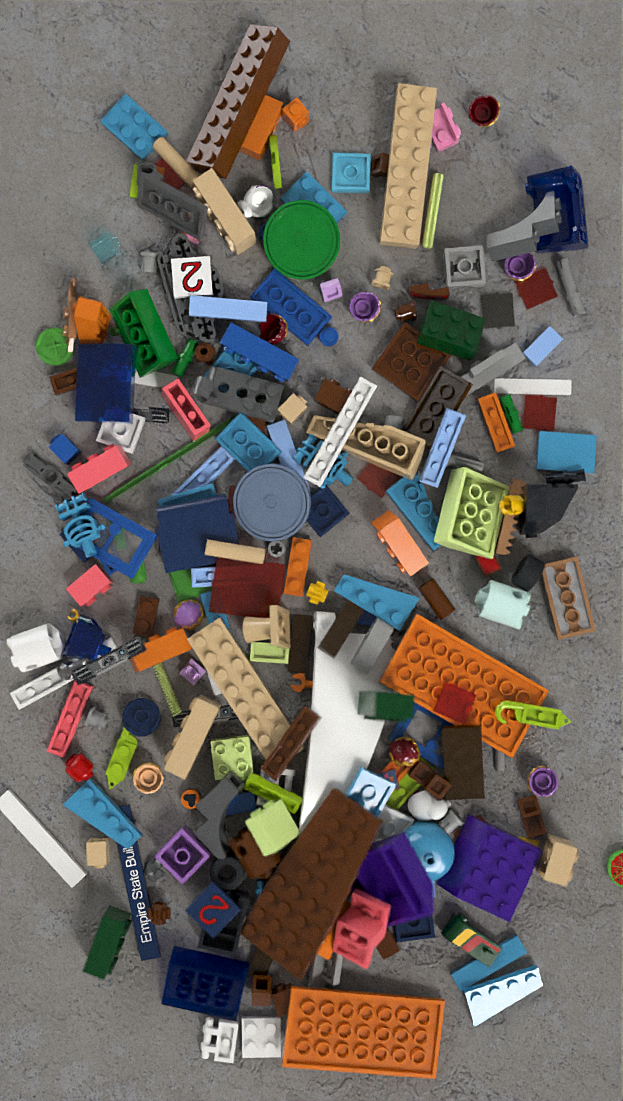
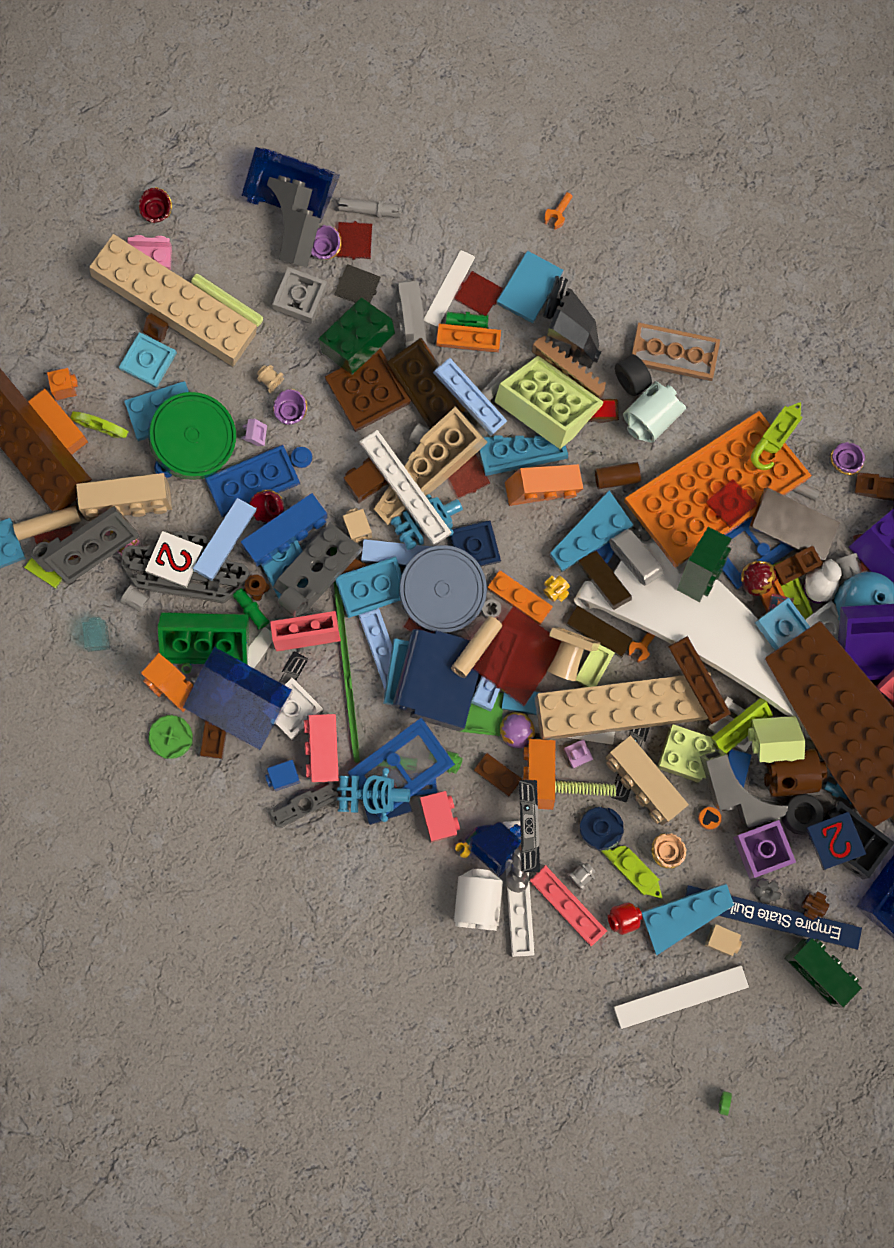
camera: 70 degrees left, 10 degrees down
(69, 329) = (148, 702): medium nougat plate -> none
(257, 202) = (130, 460): white hair -> none
(405, 312) = (315, 371): reddish brown brick -> none
(422, 292) = (305, 344): reddish brown slope -> none
(512, 505) = (560, 355): yellow piece -> none
(542, 346) = (414, 260): light blue tile -> none

